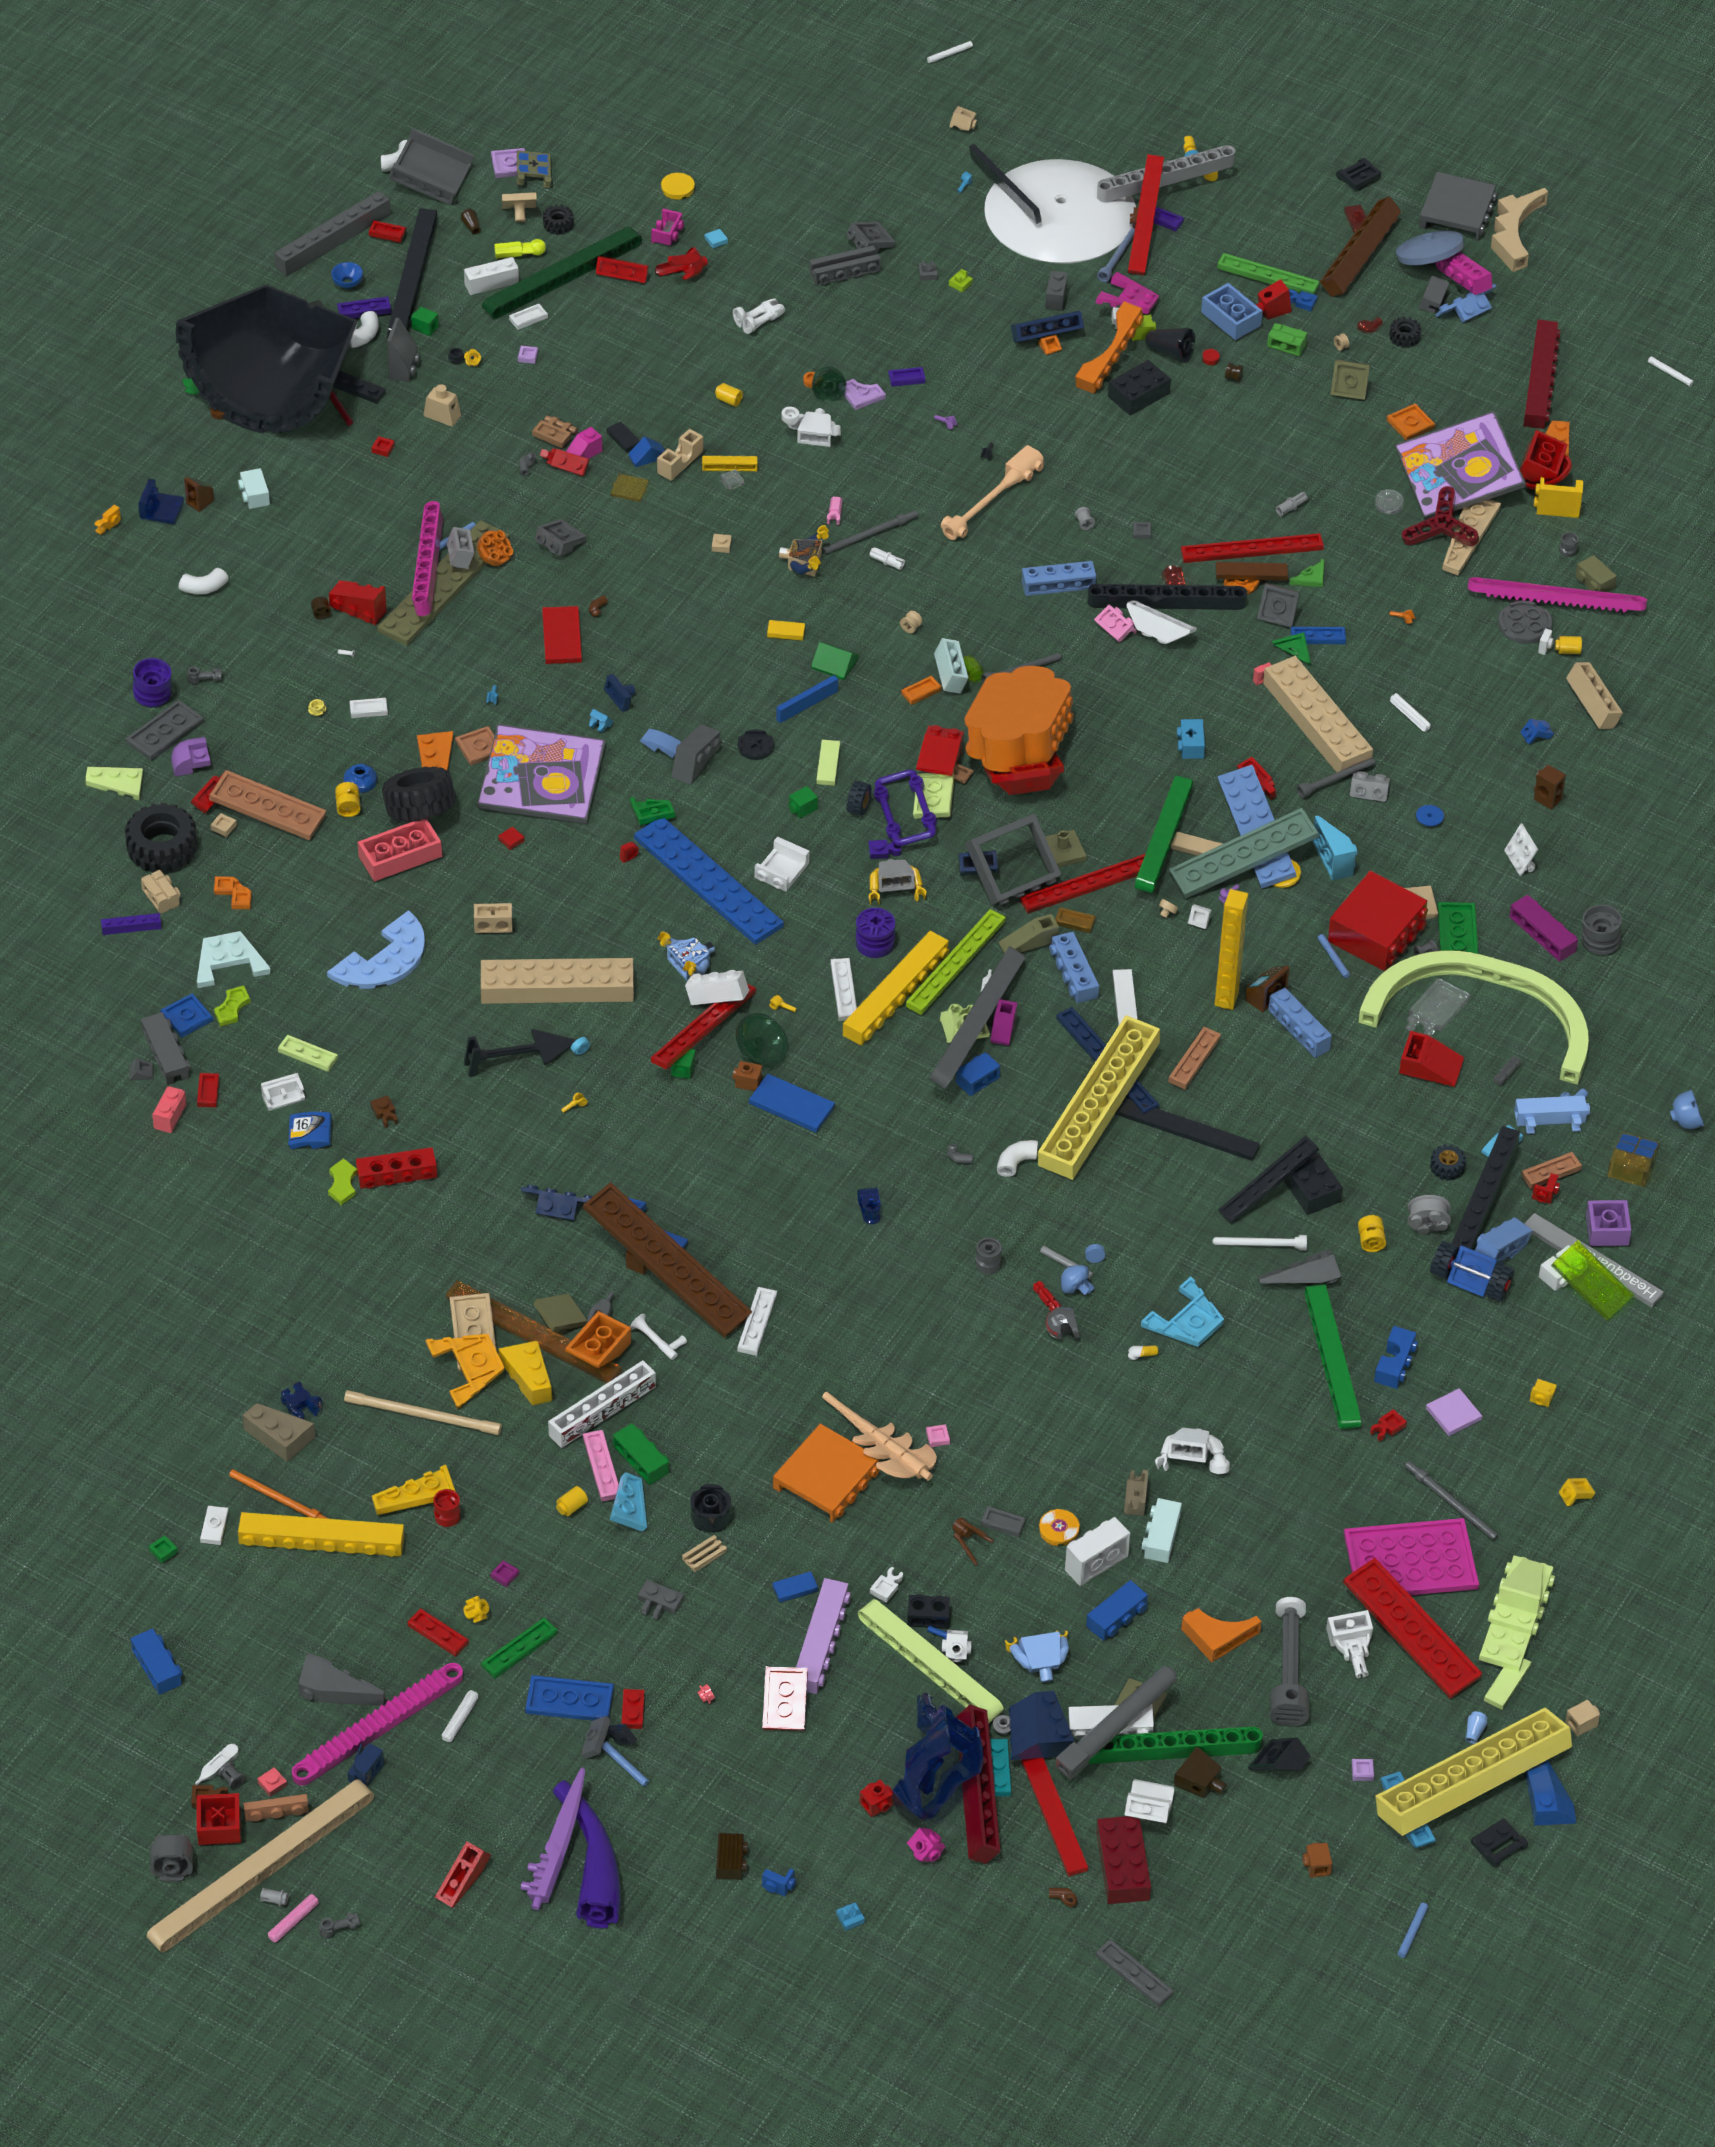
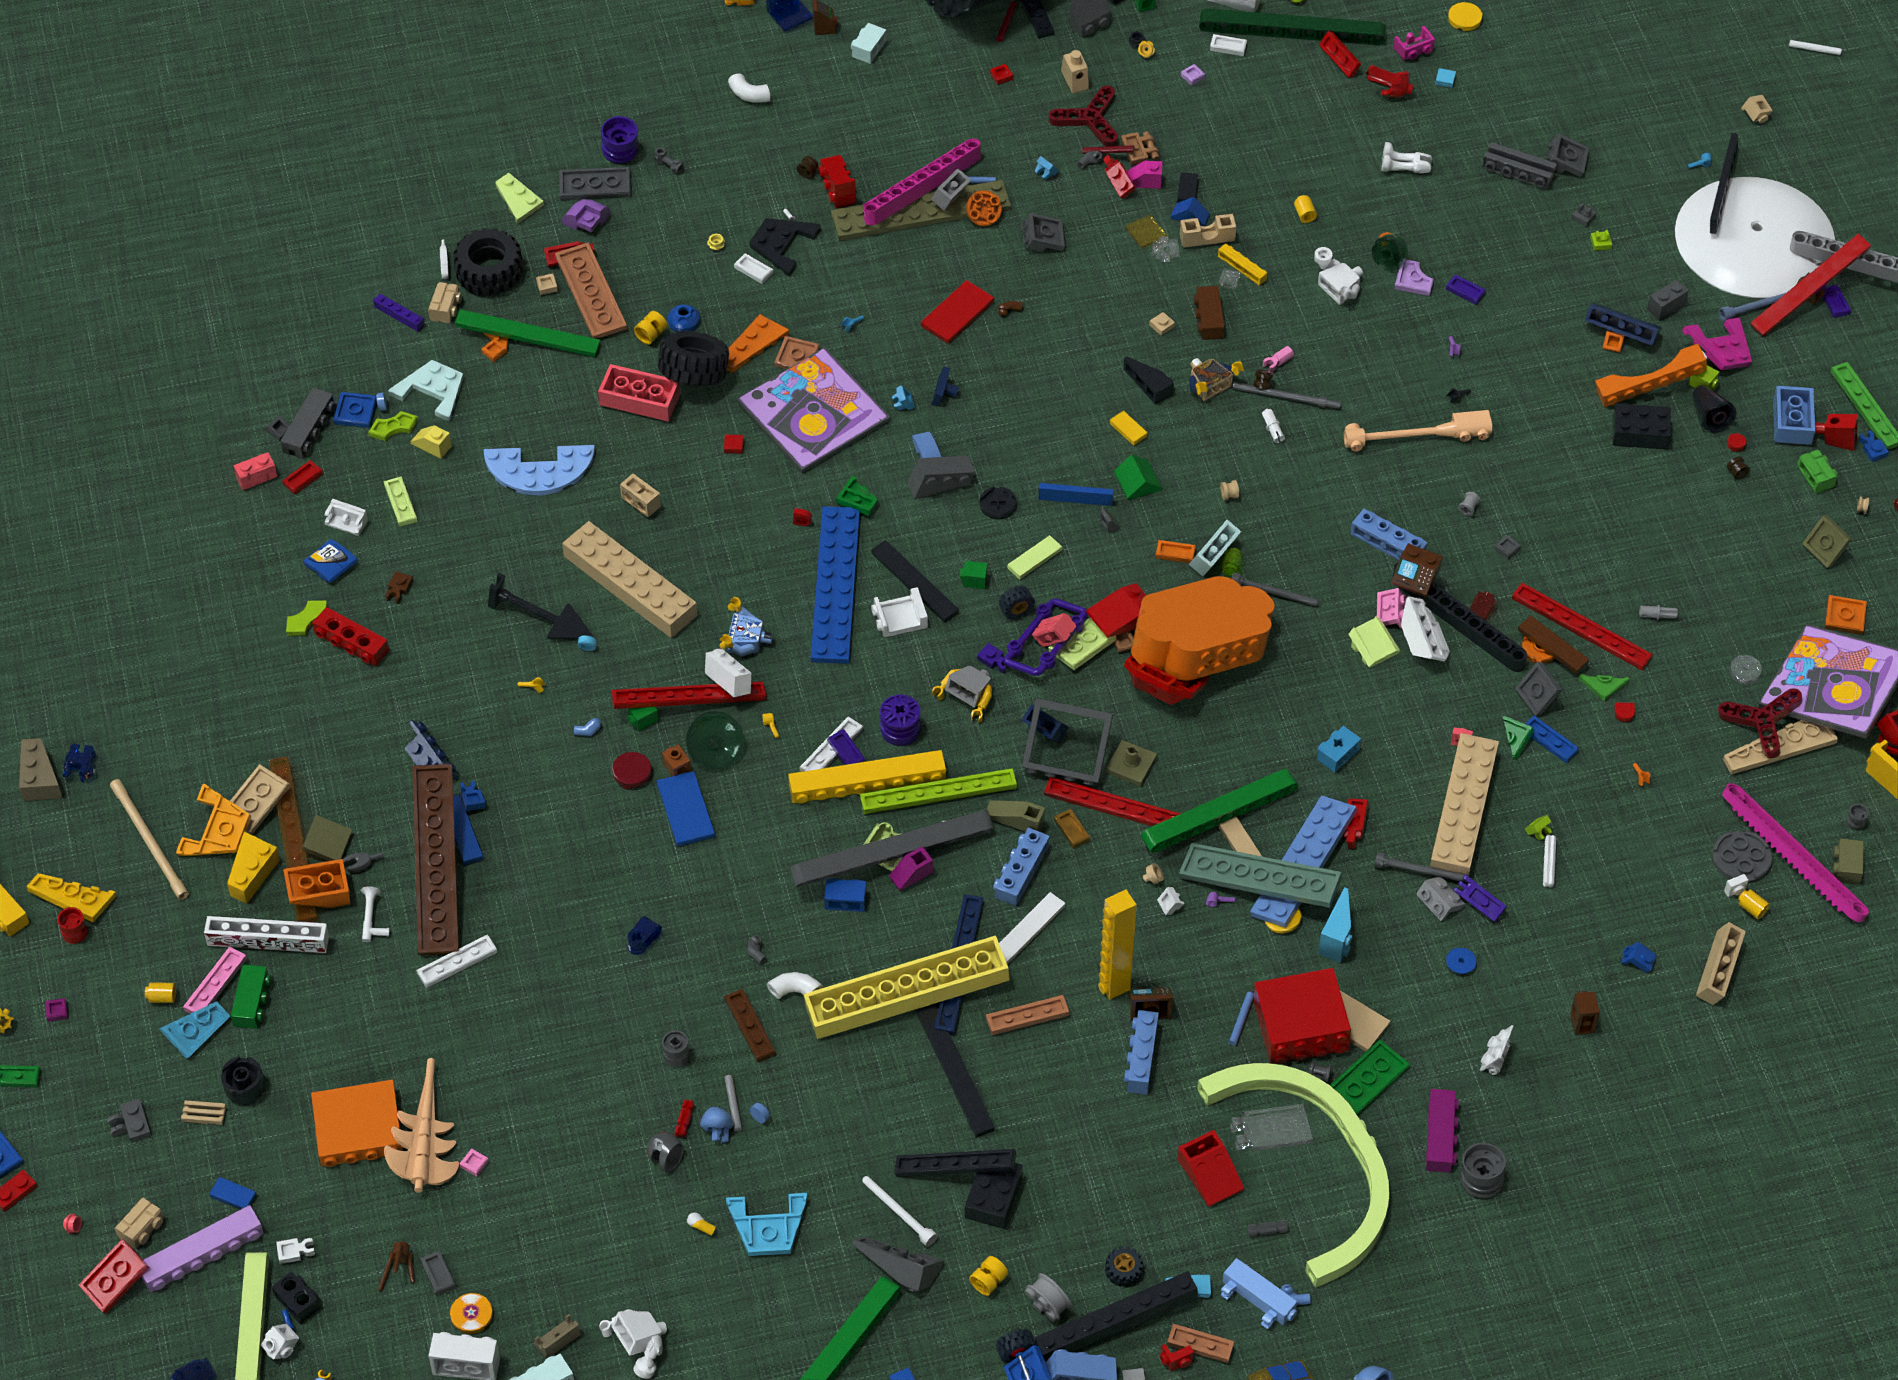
camera: 45 degrees right, 5 degrees up
(119, 864) = (444, 260): none -> white piece
(203, 993) = (381, 401): none -> medium blue tile
(255, 868) = (527, 333): none -> green tile
(278, 992) = (433, 440): none -> light yellow slope
(358, 677) = (776, 236): none -> black wing
(467, 448) = (1091, 111): none -> dark red piece
(503, 487) = (1044, 165): none -> dark azure tile
(535, 446) = (1110, 149): none -> dark red bar
(655, 1102) = (589, 729): none -> medium blue arm
(664, 487) = (1171, 250): none -> clear brick
(722, 1105) = (631, 770): none -> dark red tile
(749, 511) = (1209, 312): none -> reddish brown brick
(755, 1653) = (139, 1223): none -> tan brick
(760, 837) = (913, 578): none -> black tile
(761, 586) = (1150, 380): none -> black slope
(843, 530) = (1263, 379): none -> dark brown wheel
(850, 701) = (1108, 521): none -> dark grey slope
(858, 980) = (845, 748): none -> dark purple tile
(910, 796) = (1054, 630): none -> coral brick
(1015, 1206) = (749, 1025): none -> reddish brown tile
(1111, 581) = (1417, 570): none -> reddish brown slope
(1130, 655) = (1373, 642): none -> yellowish green slope
(1344, 583) = (1624, 711): none -> red tile
(1379, 695) = (1537, 827): none -> lime tile
(1398, 766) = (1481, 899): none -> dark purple hinge

